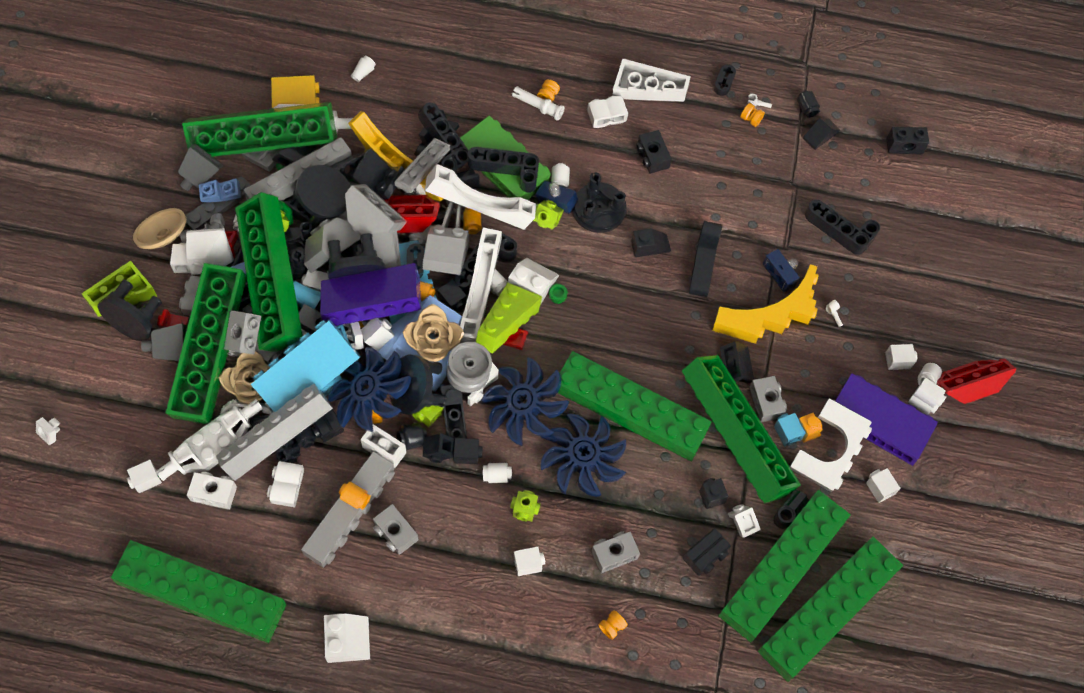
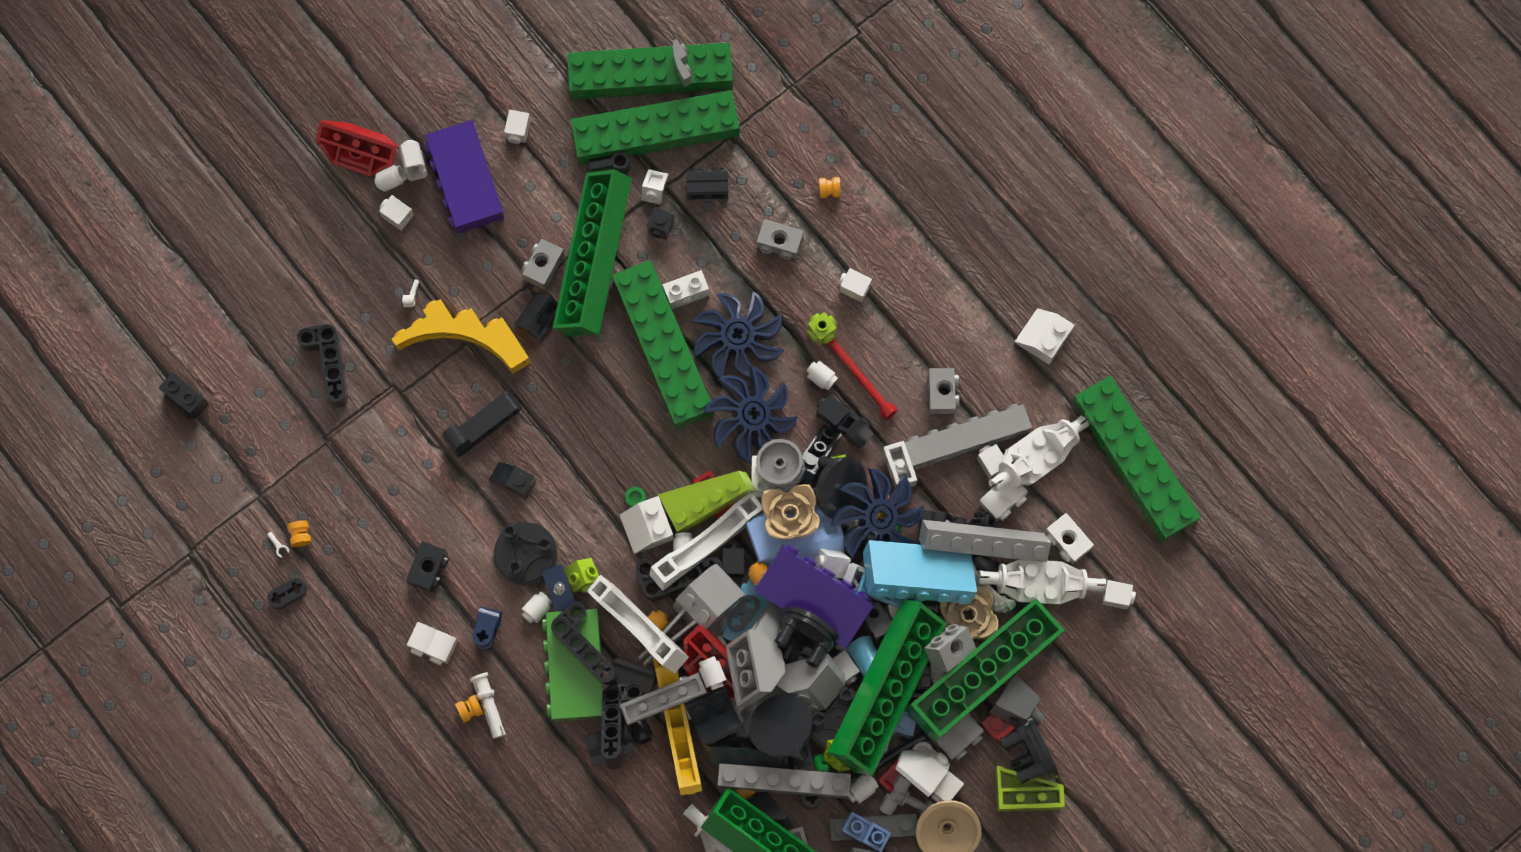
camera: 135 degrees left, 10 degrees up
(47, 430) = (1173, 701): white tile -> none
(282, 531) = (1038, 453): none -> white plate
(314, 505) = (990, 459): none -> white brick
(354, 495) = (958, 433): light orange brick -> none
(401, 195) = (712, 673): none -> white brick
(412, 435) = (869, 458): black head -> none
(428, 485) = (886, 409): none -> red piece
(582, 143) = (487, 624): none -> dark blue piece
(647, 82) = (372, 645): white wedge -> none
(650, 457) = (686, 289): none -> white brick
(781, 269) = (420, 364): dark blue piece -> none
(789, 429) = (549, 226): medium azure brick -> none
(808, 103) = (235, 504): black brick -> none
(812, 427) = (532, 215): light orange brick -> none
(818, 625) = (680, 59): none -> light grey slope
(821, 132) = (251, 467): black slope -> none
(853, 429) = (552, 166): white arch -> none

